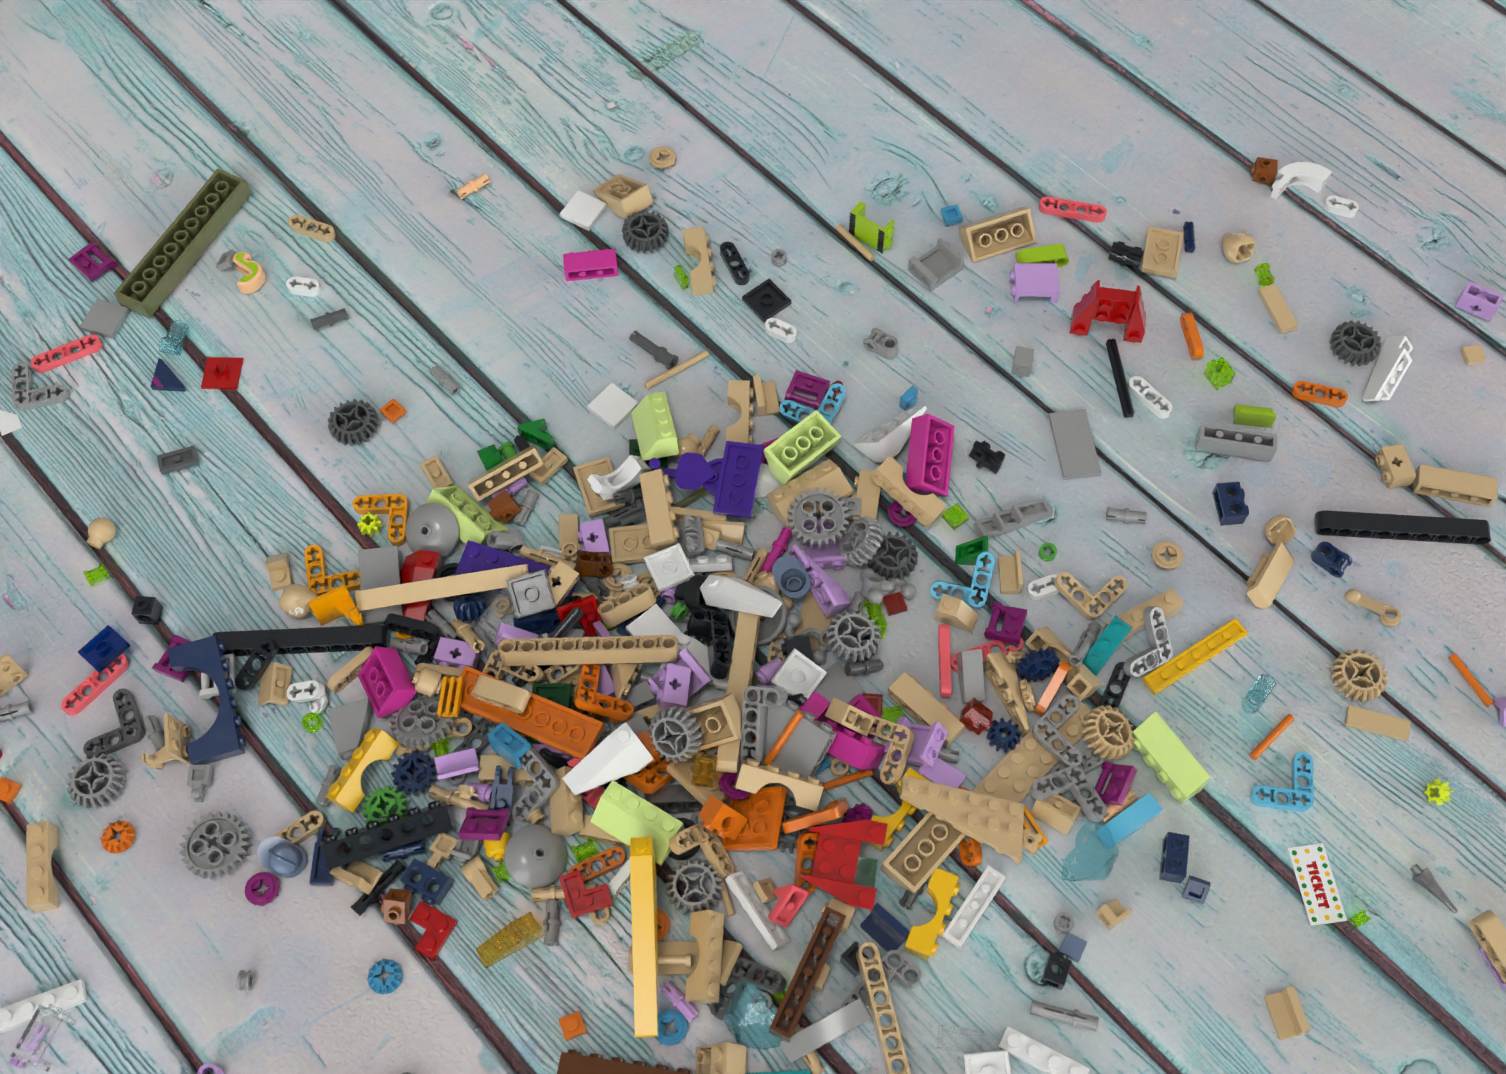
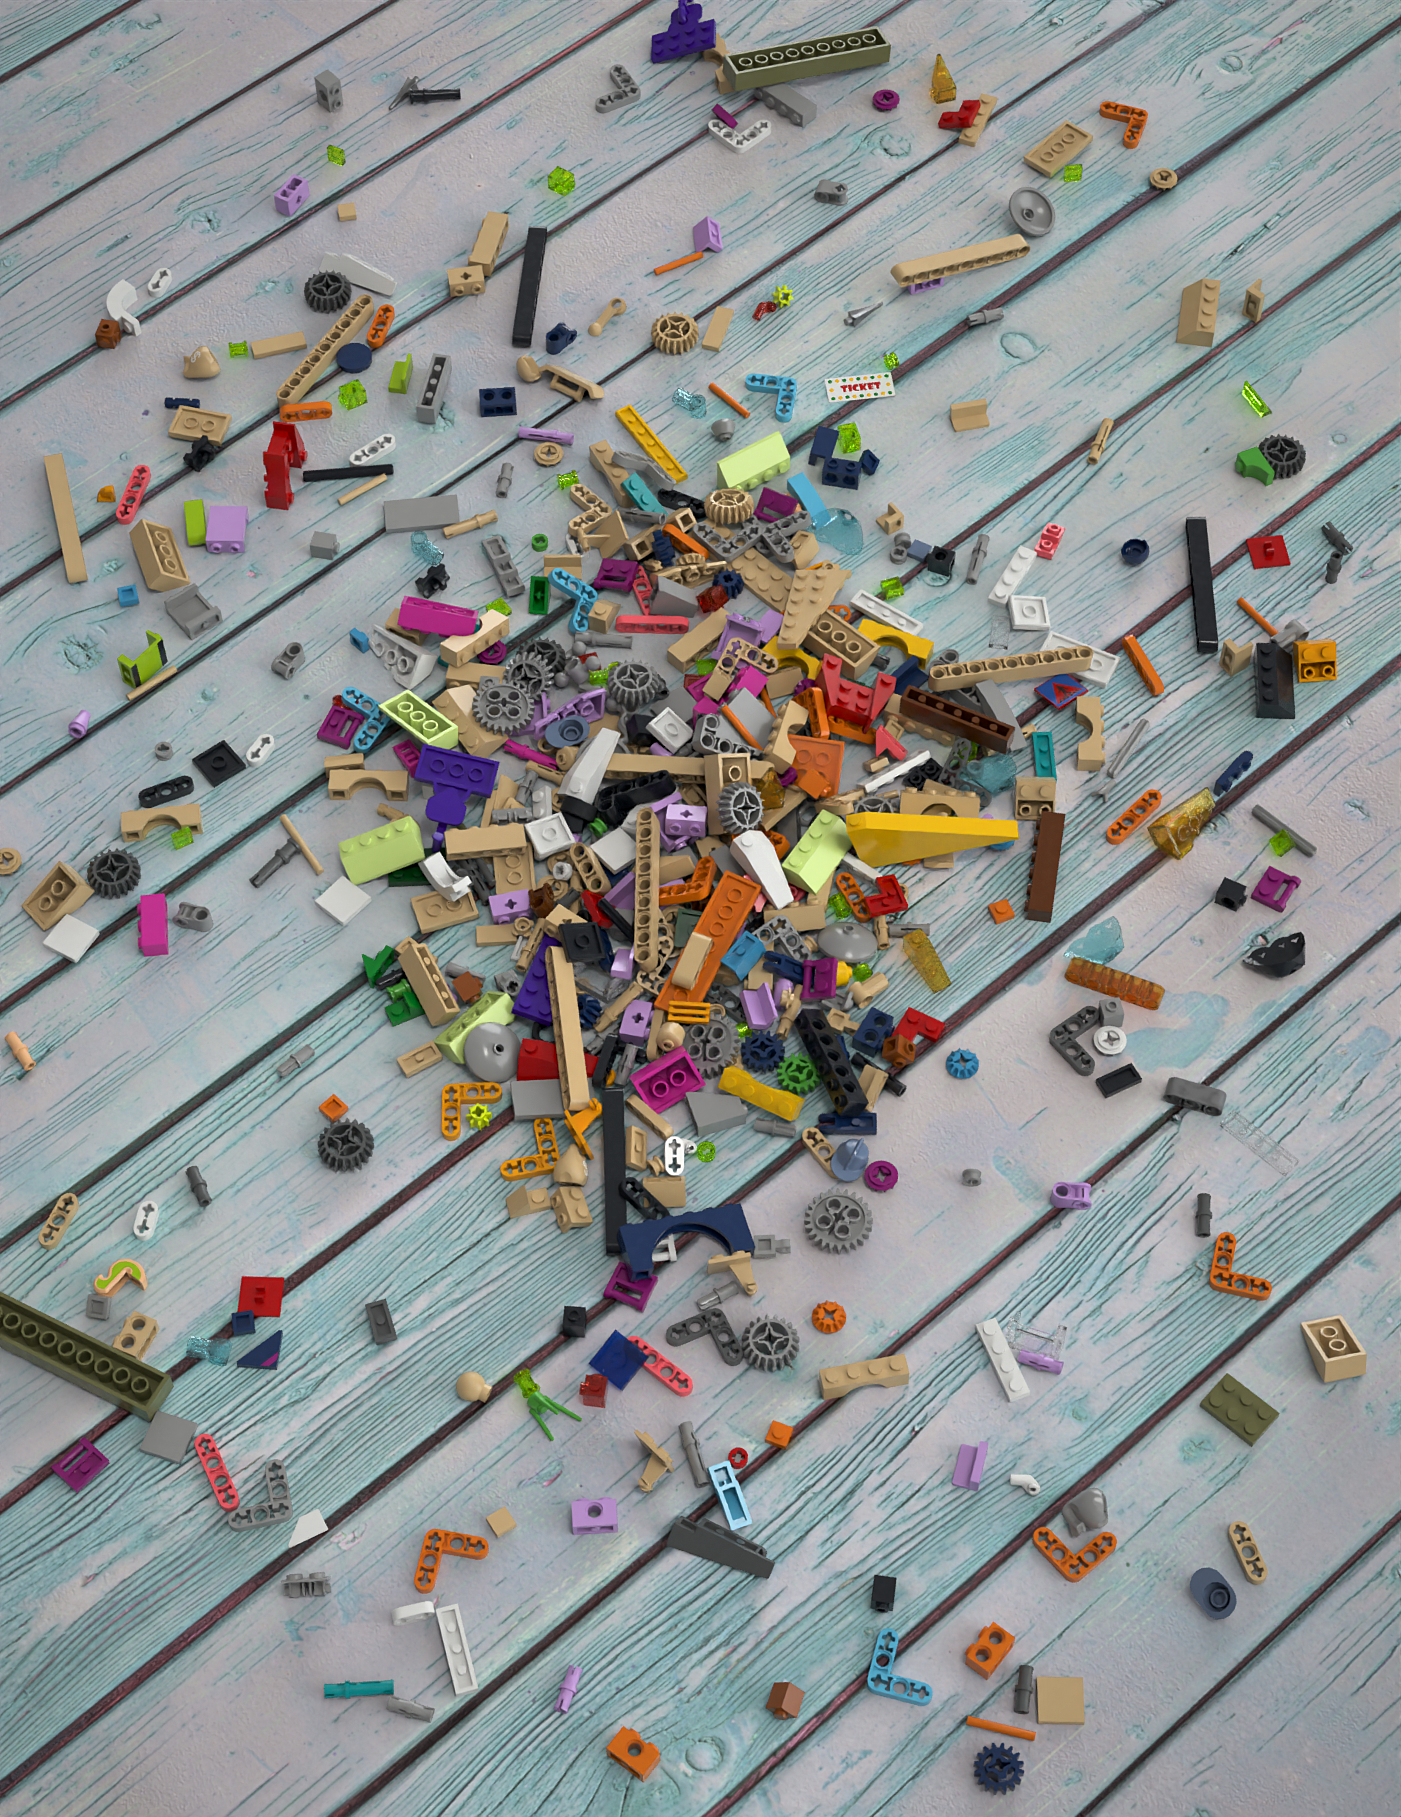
camera: 90 degrees left, 5 degrees down
(75, 586) = (541, 1404): none -> bright green plant
(75, 629) = (594, 1390): none -> clear red brick
(193, 287) = (140, 1339): none -> tan brick
(195, 360) = (243, 1323): none -> dark blue plate
(263, 607) = (570, 1208): none -> tan bracket
(299, 675) = (655, 1166): none -> tan bush
(319, 658) = (636, 1148): none -> tan plate
(597, 293) = (191, 917): none -> light grey piece
(753, 944) = (917, 778): none -> black slope
(805, 193) = (79, 724): none -> lavender cone
(811, 910) = (894, 728): none -> tan tile
(876, 793) = (783, 681): none -> tan panel
(923, 606) = (603, 639): none -> light grey pin
(1013, 913) = (892, 587): none -> clear neon green plate
(1026, 449) = (422, 546): none -> clear light blue piece
(1037, 160) = (65, 518): none -> tan beam
(1052, 615) = (607, 537): none -> tan plate
(1065, 489) = (469, 524): none -> tan pin
(1068, 189) = (106, 494): none -> light orange tile
(1082, 926) = (902, 539): none -> light grey bush
(1097, 388) = (360, 490): none -> tan bar
(1132, 573) = (567, 479): none -> clear neon green bush
(1191, 558) = (546, 435): none -> lavender pin
(1213, 836) = (823, 444): none -> dark blue panel
(1222, 728) = (723, 429): none -> light grey cone
(1237, 863) = (849, 438): none -> clear neon green brick
(1272, 373) = (354, 357): none -> dark blue tile
(1273, 347) = (325, 351): none -> tan beam
(1418, 772) = (764, 307): none -> clear red arm
(1455, 1038) = (985, 316): none -> light grey pin

